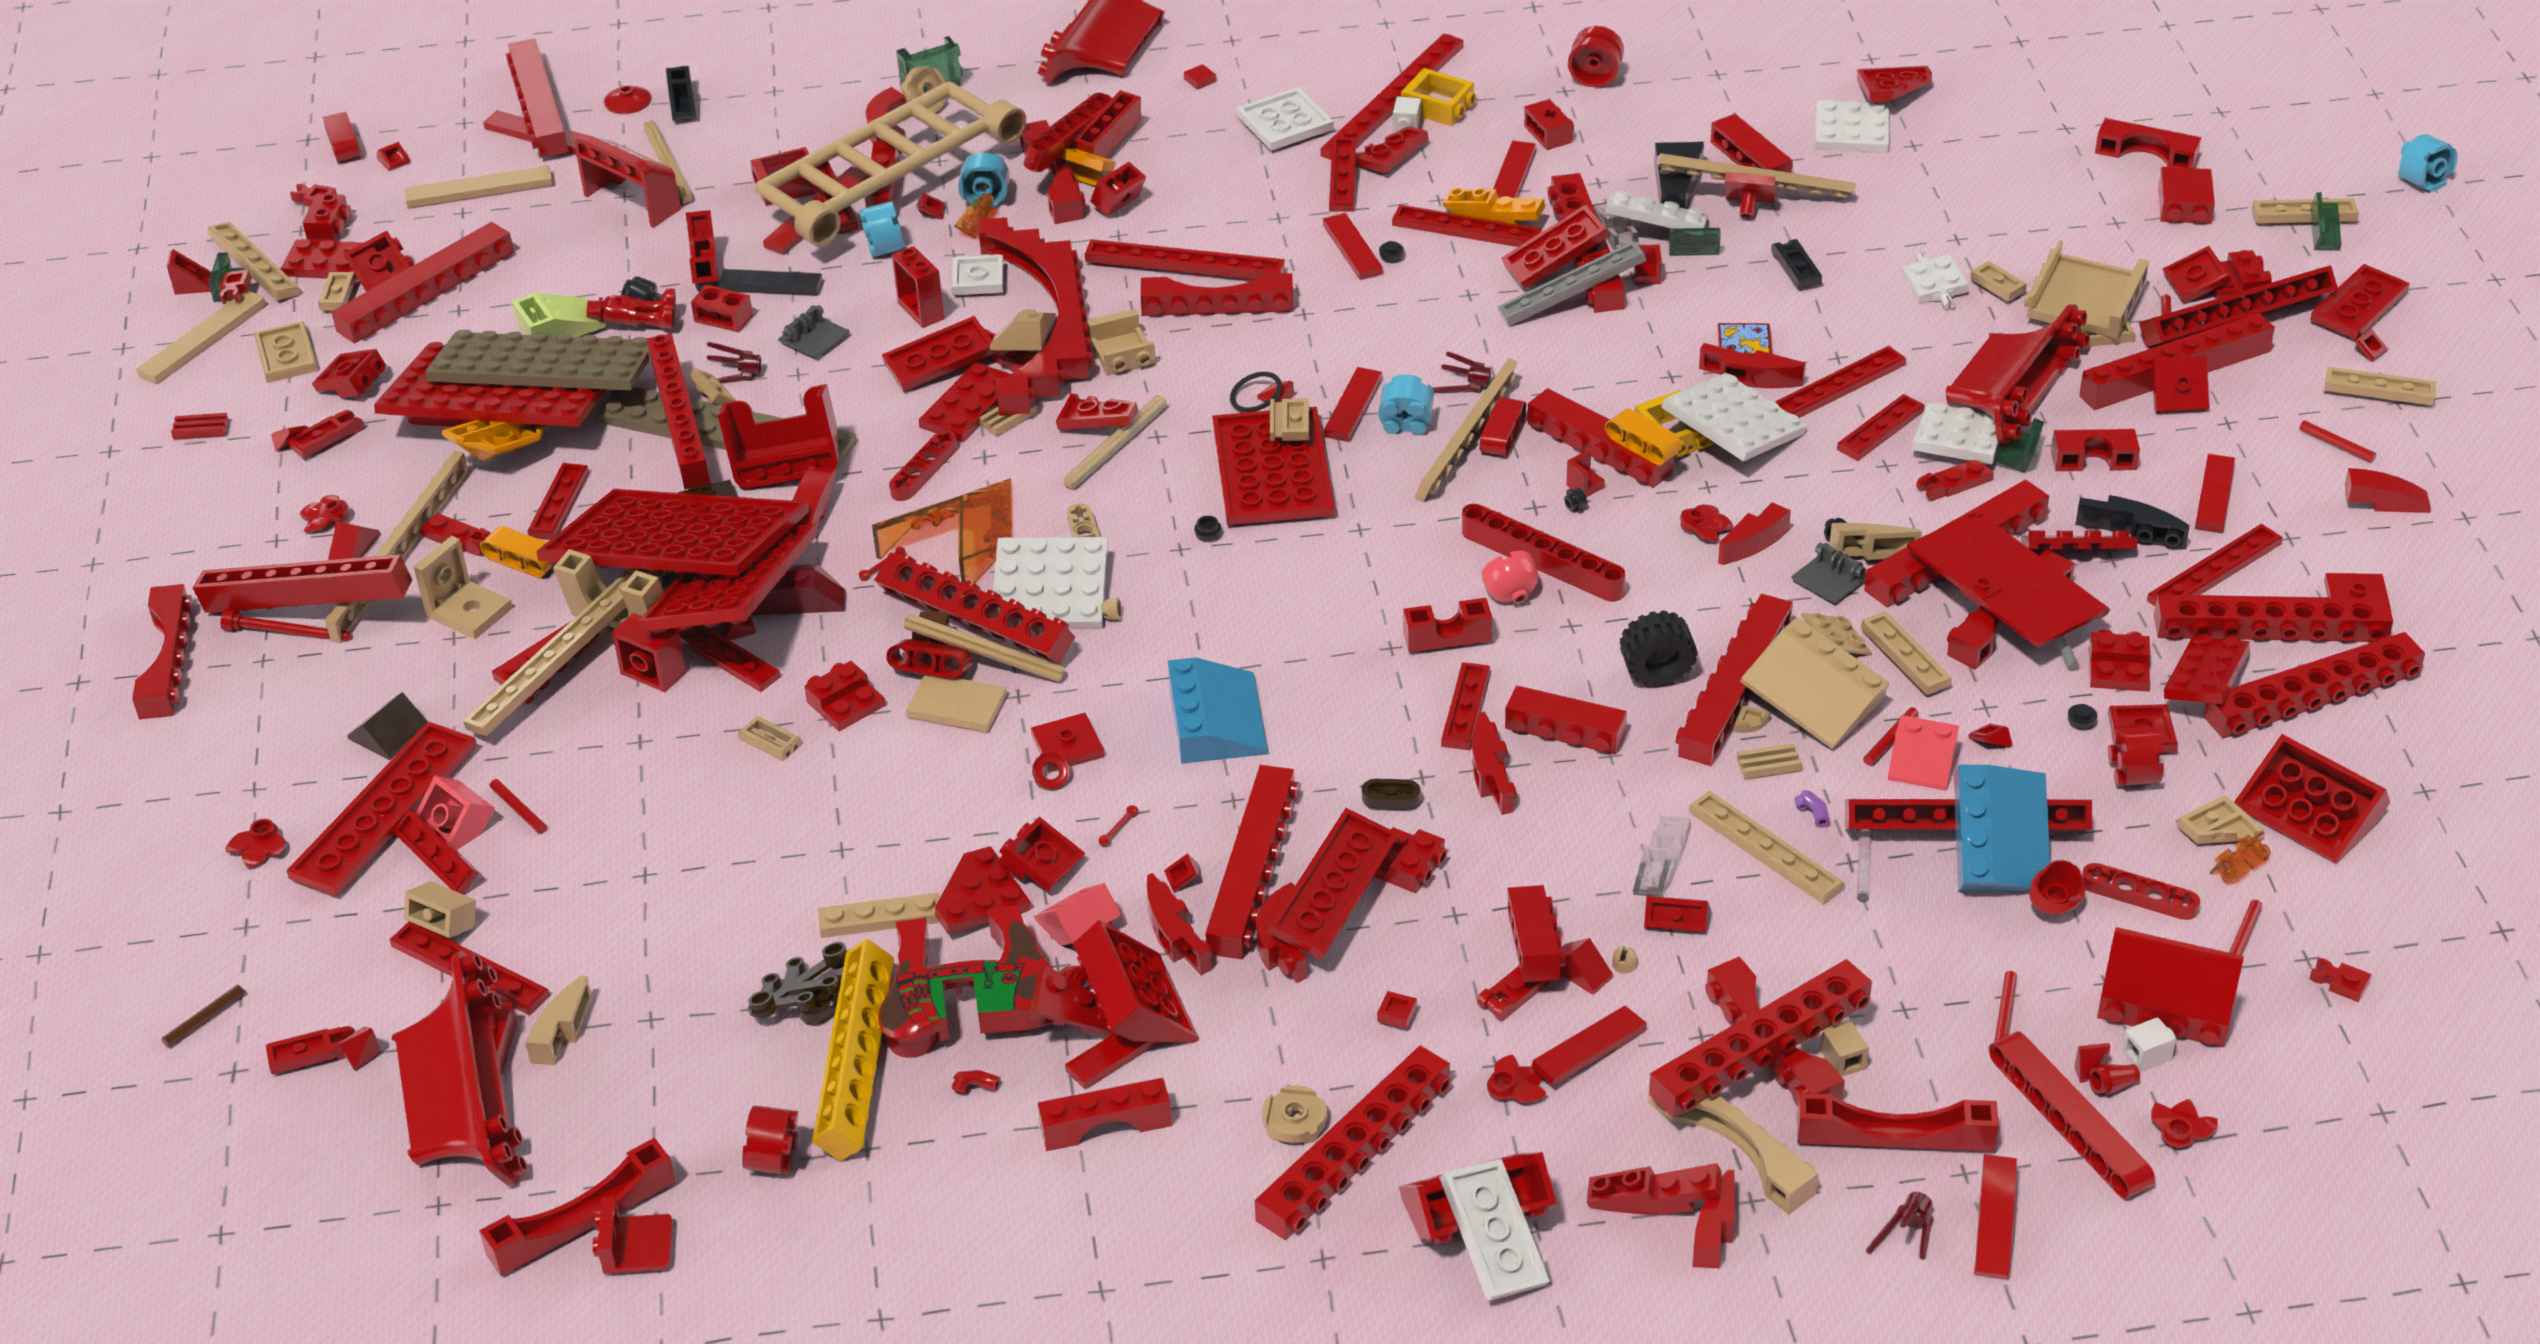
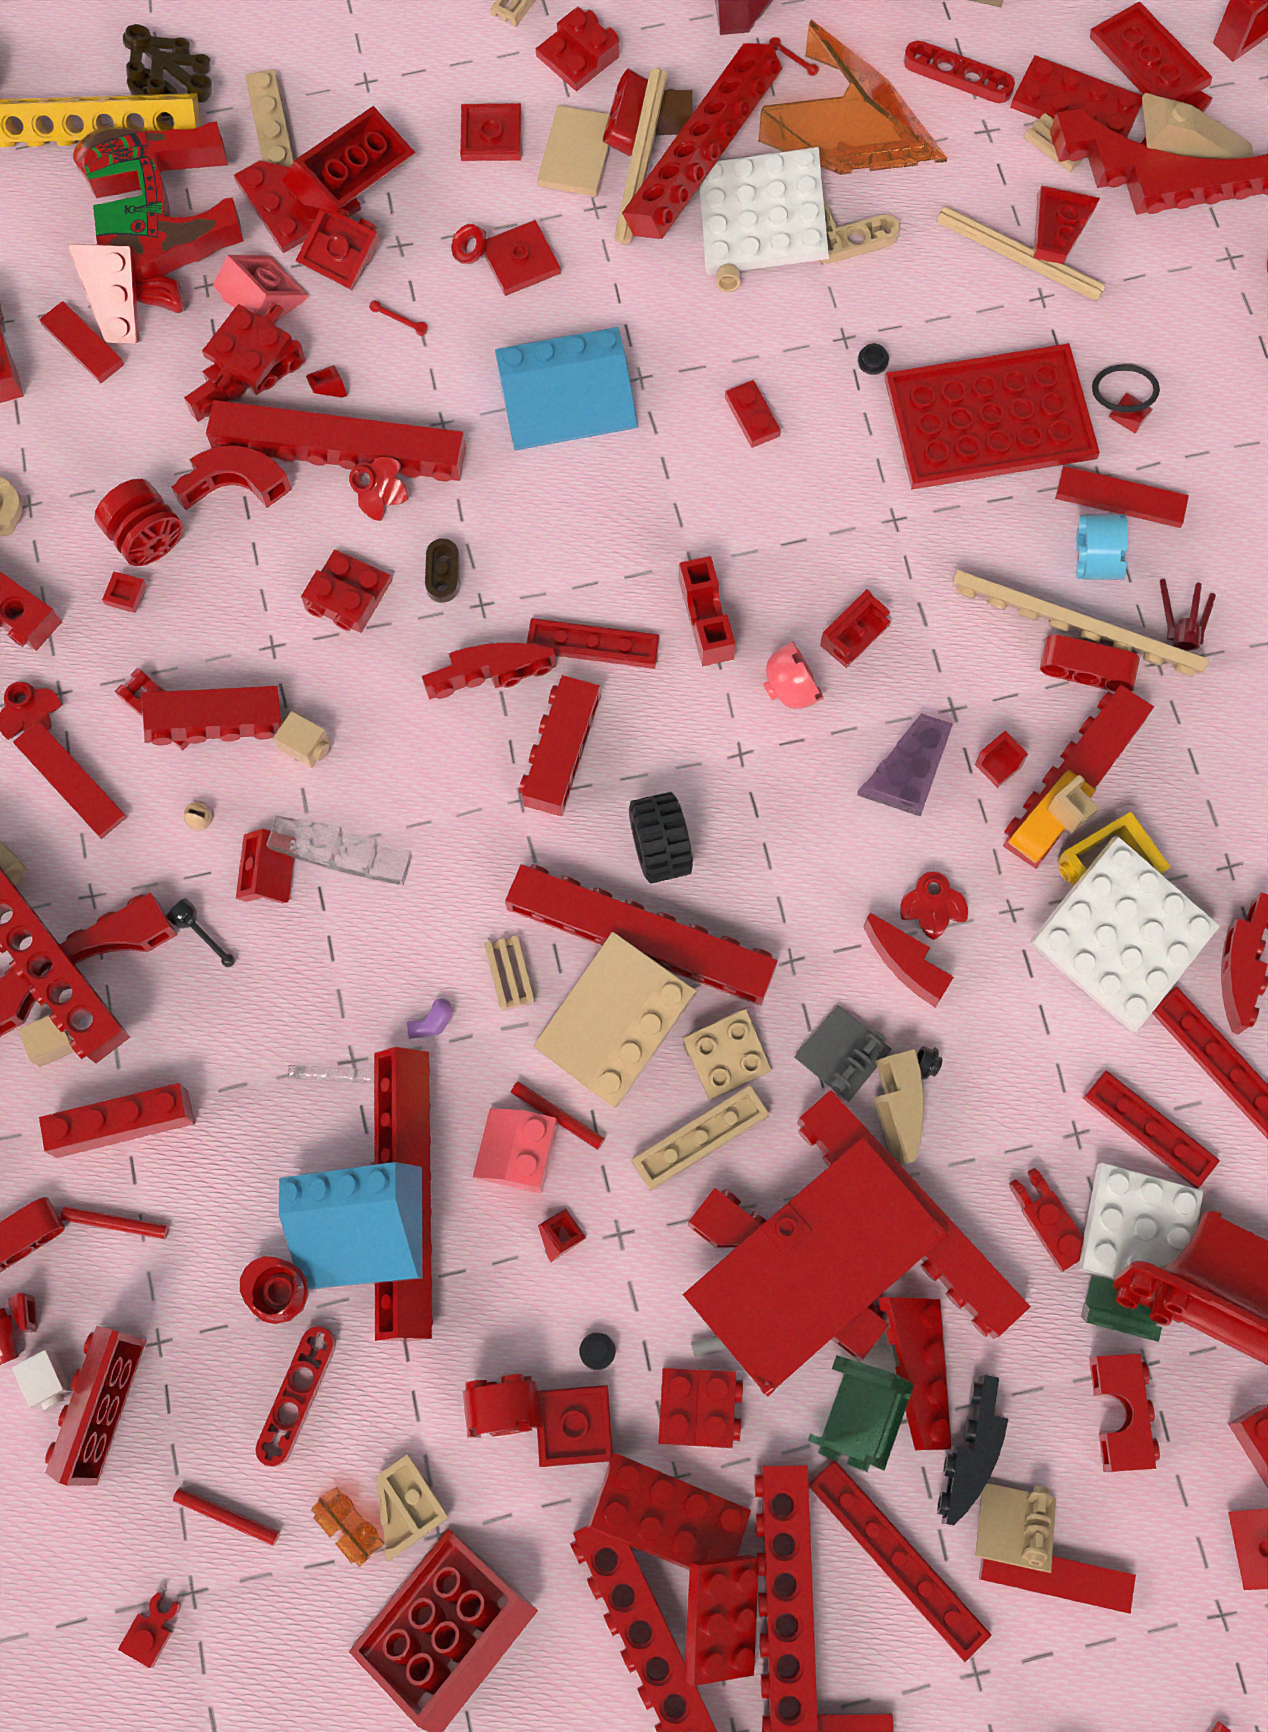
camera: 85 degrees right, 30 degrees up
(922, 760) = (490, 132): none -> red tile
(959, 834) = (347, 162): none -> red slope
(975, 1077) = (52, 229): red arm -> none
(1120, 342) = (1200, 240): tan panel -> none
(1132, 987) = (137, 345): red slope -> none
(1154, 902) = (247, 346): none -> red plate
(1250, 602) = (752, 413): none -> red plate
(1289, 419) = (1057, 420): tan plate -> none
(1301, 827) = (383, 486): none -> red plate
(1333, 884) = (275, 511): red plate -> none
(1333, 983) = (138, 522): none -> red wheel
(1461, 551) = (855, 629): none -> red hinge
(1548, 553) = (849, 728): red beam -> none
(1559, 880) = (302, 740): none -> tan brick
(1575, 499) = (959, 751): black plate -> none
(1585, 966) = (185, 769): red slope -> none
(1589, 526) = (910, 768): none -> clear purple wing
(1643, 412) = (1072, 806): none -> tan panel
(1722, 956) = (184, 916): none -> black hinge
(1751, 719) = (580, 952): tan tile -> none
(1766, 847) = (370, 967): tan tile -> none
(1917, 998) = (116, 1120): none -> red brick
(2115, 566) = (864, 1415): none -> clear green panel
(2189, 502) = (1016, 1526): none -> tan hinge
(2277, 639) = (721, 1619): none -> red plate

